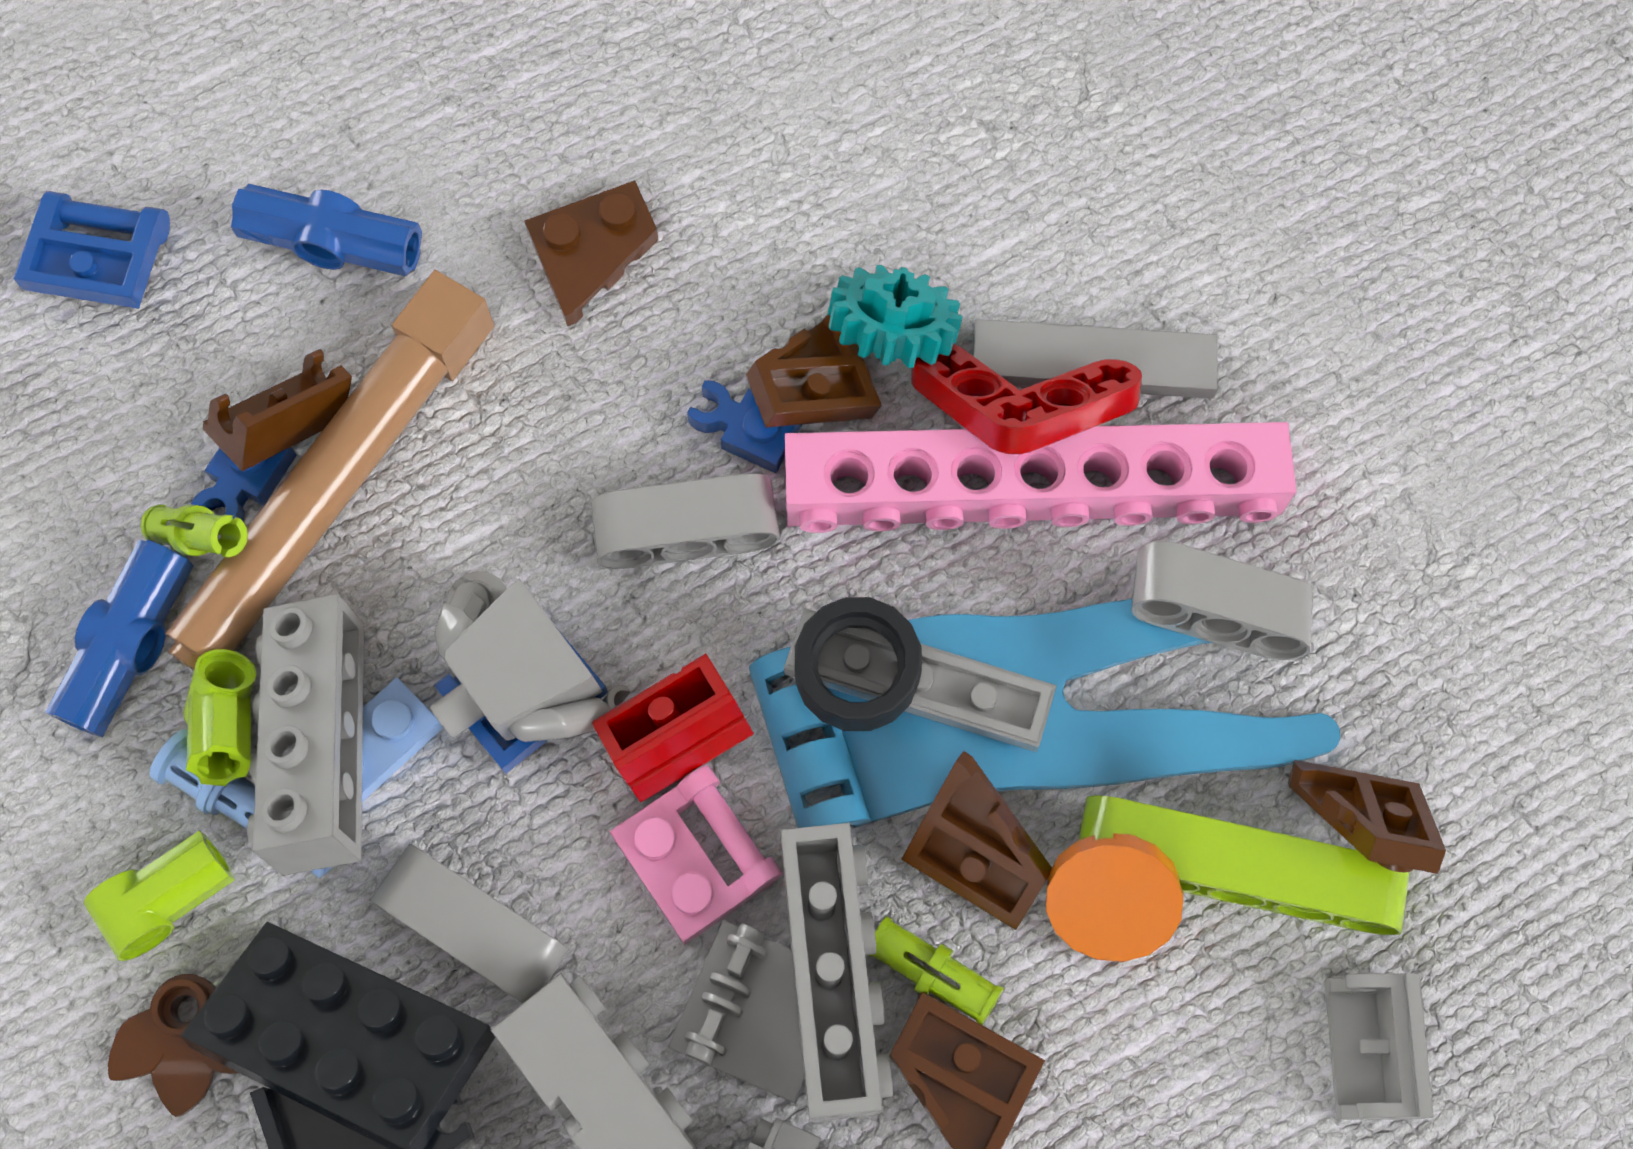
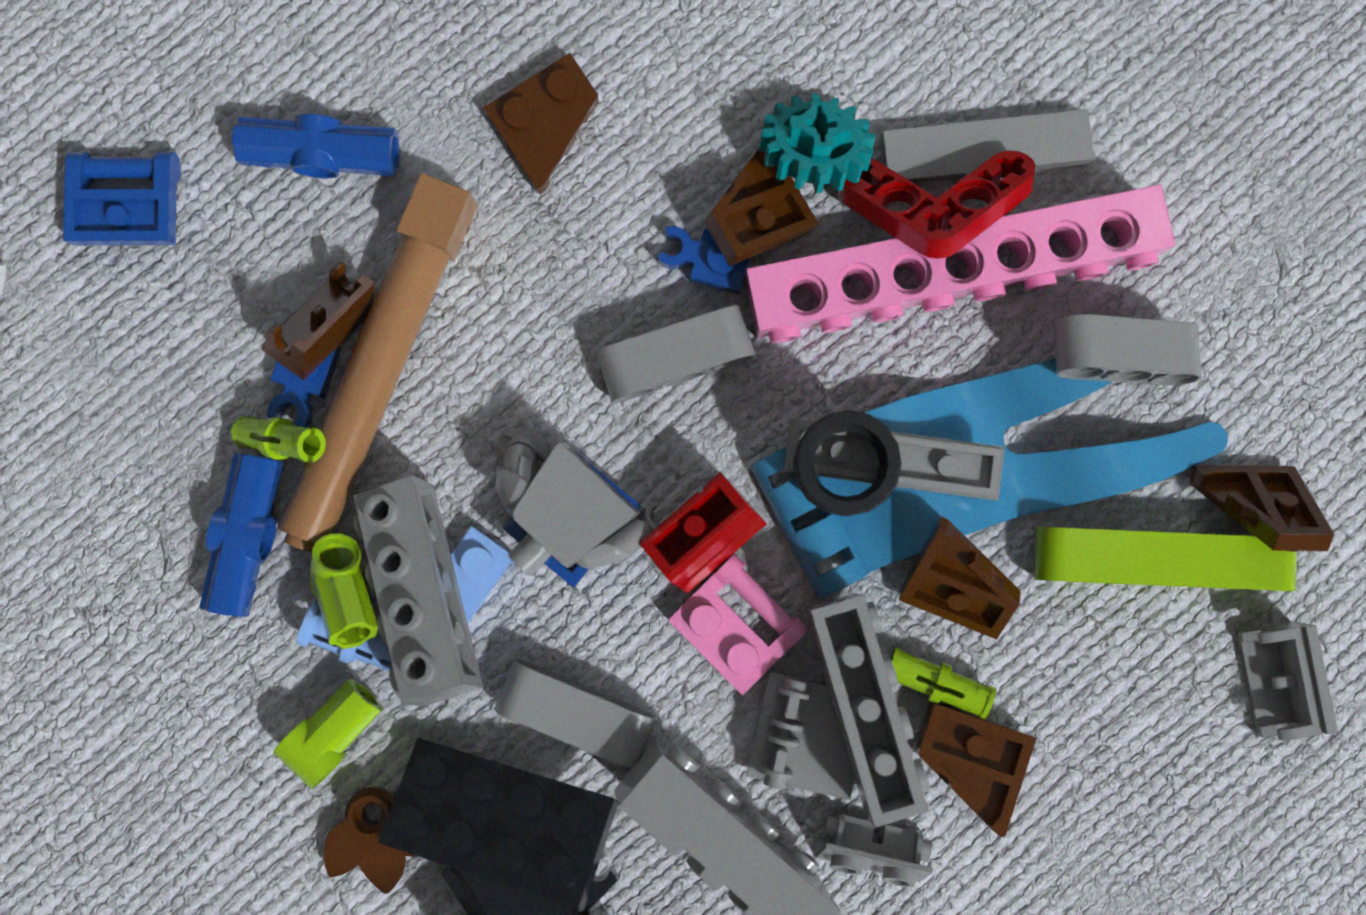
camera: 10 degrees left, 15 degrees up
(1114, 897) = (1073, 606): orange tile -> none

